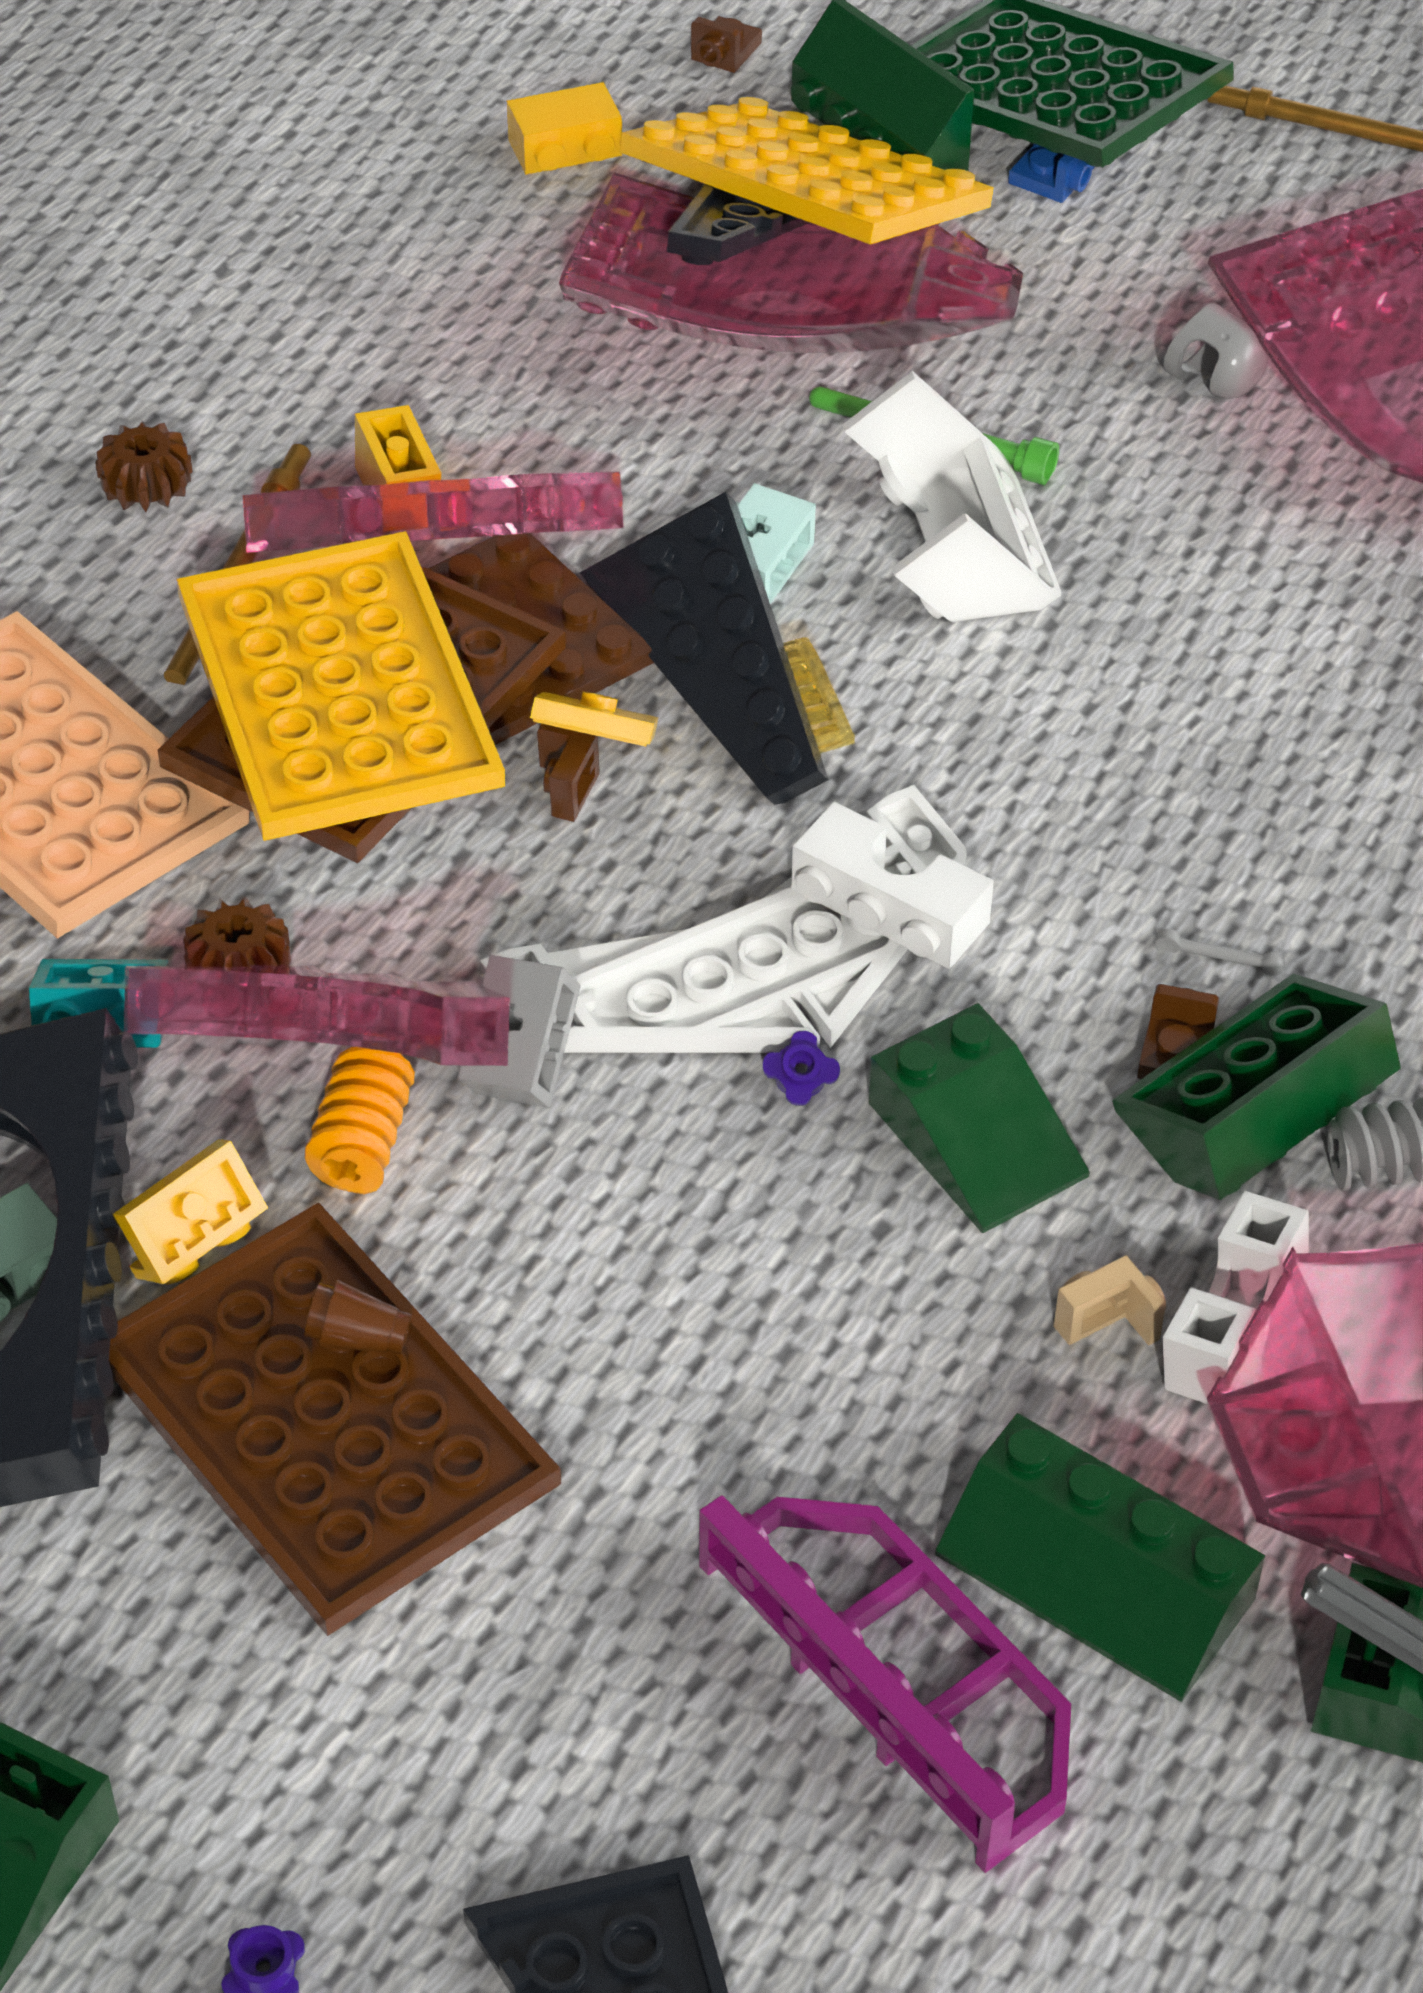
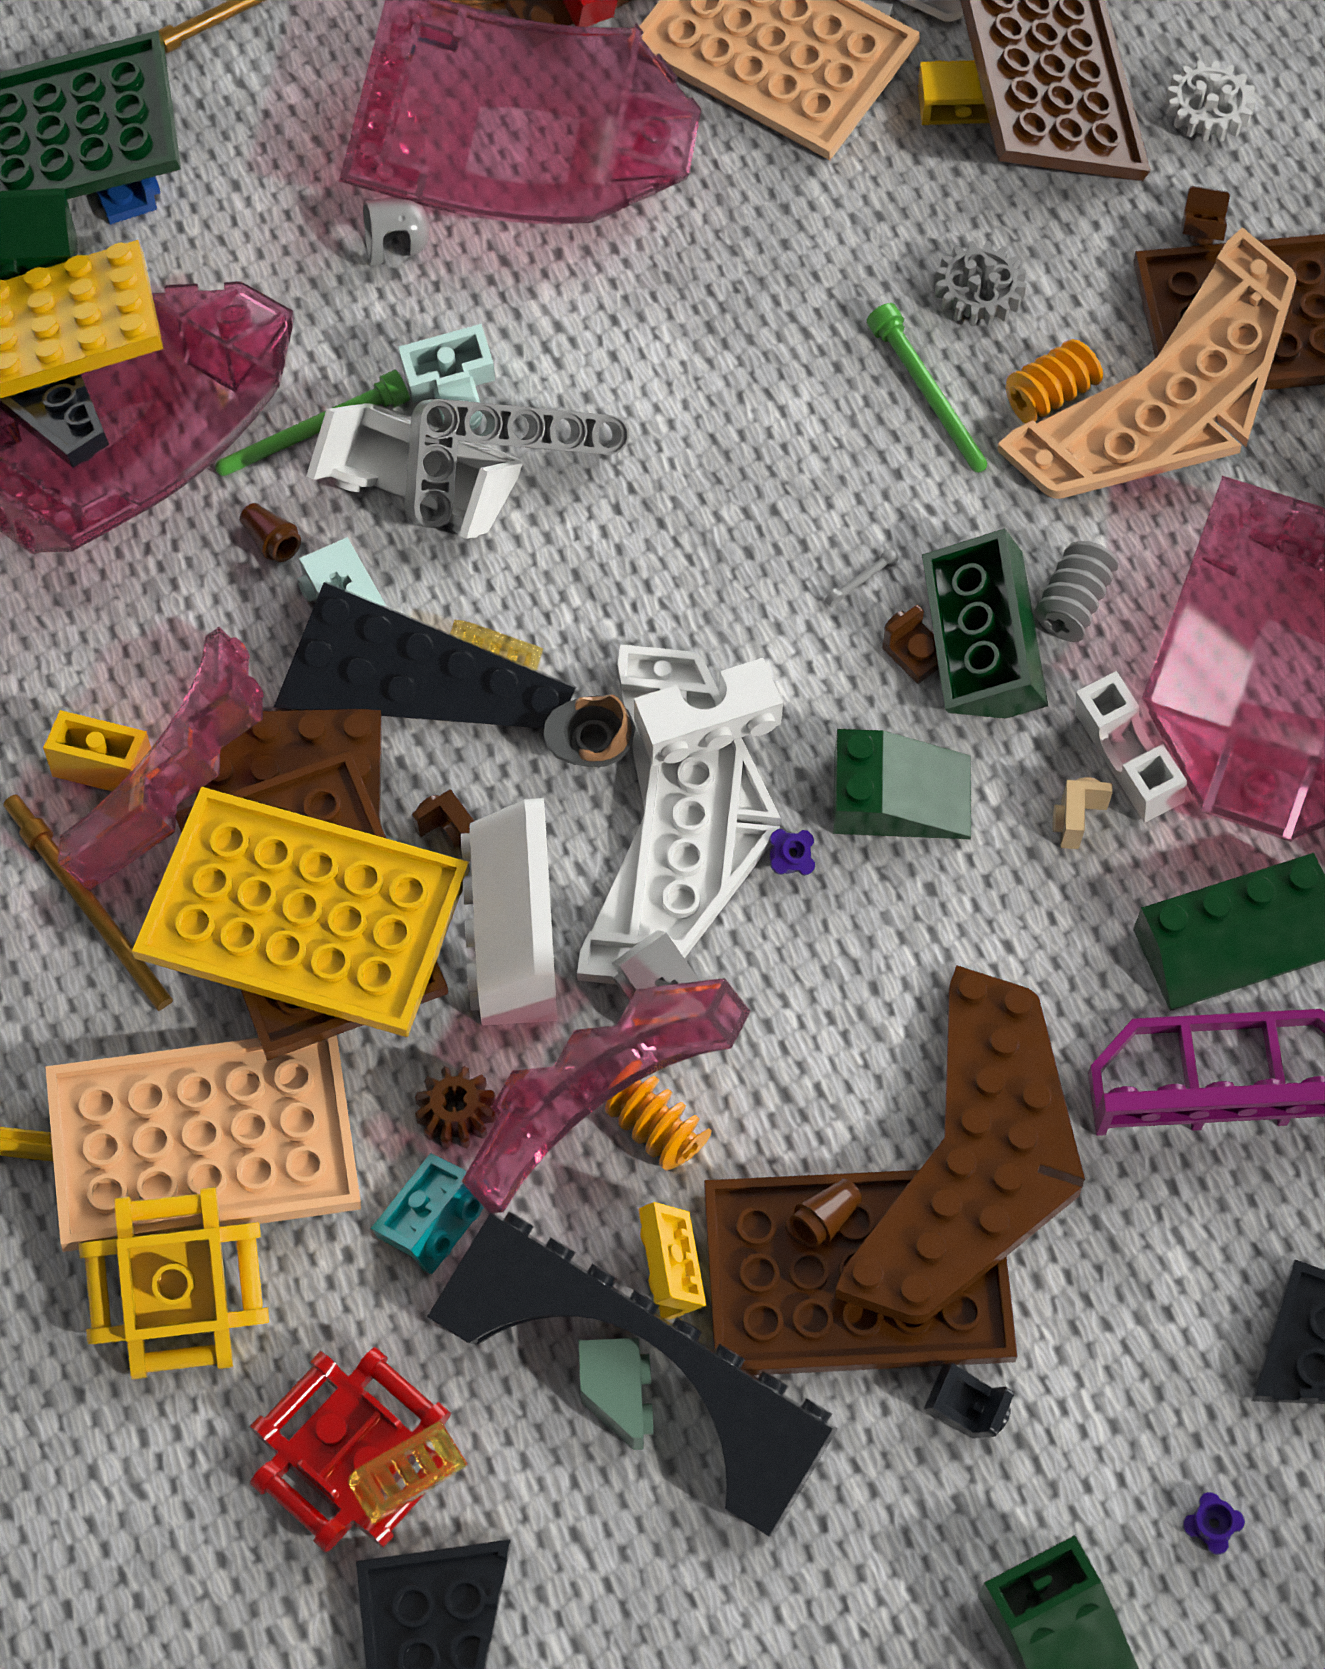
camera: 55 degrees left, 15 degrees up
(230, 1603) = (969, 1403): none -> black bracket
(444, 843) = (511, 916): none -> white windscreen
(527, 1459) = (994, 1175): none -> reddish brown wing
(595, 716) = (433, 781): yellow plate -> none
(773, 810) = (590, 731): none -> dark grey piece
(775, 461) = (270, 532): none -> reddish brown cone
(1052, 537) = (497, 432): none -> light grey beam
(1096, 477) = (449, 367): none -> light aqua brick

